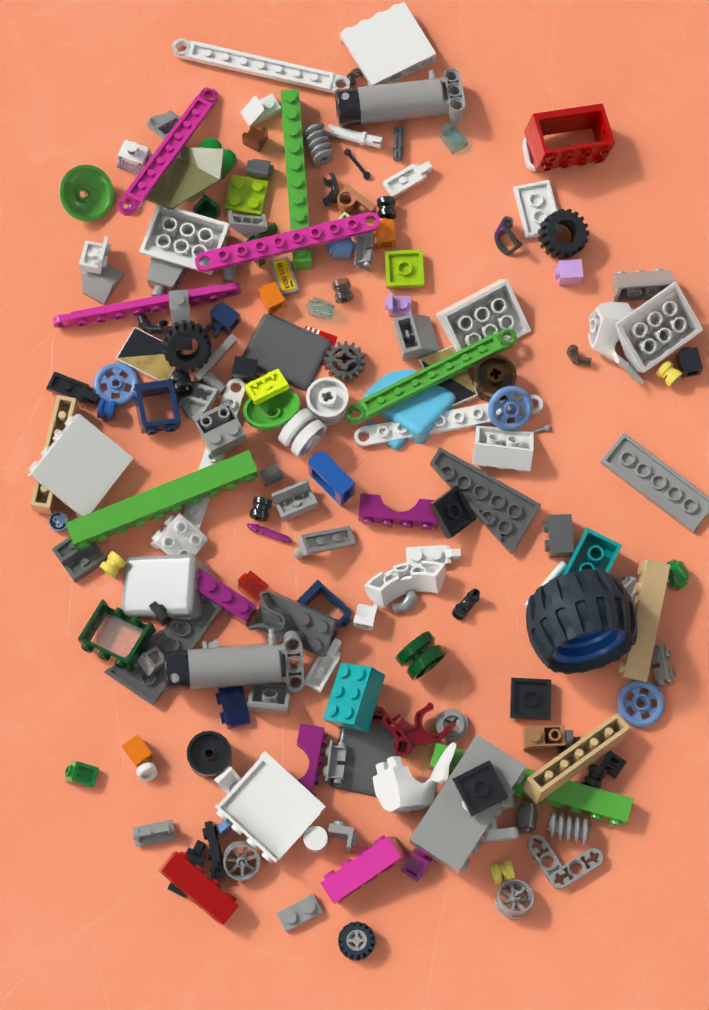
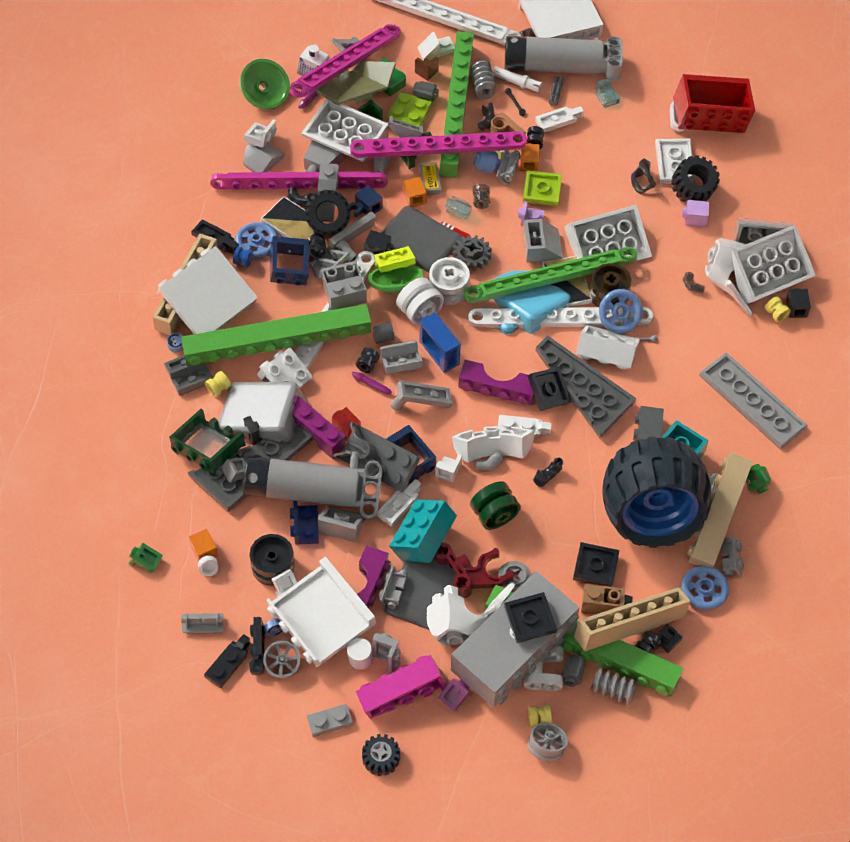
camera: 10 degrees right, 15 degrees down
(198, 887) = (234, 673): red brick -> none
(557, 868) = (598, 725): light grey beam -> none

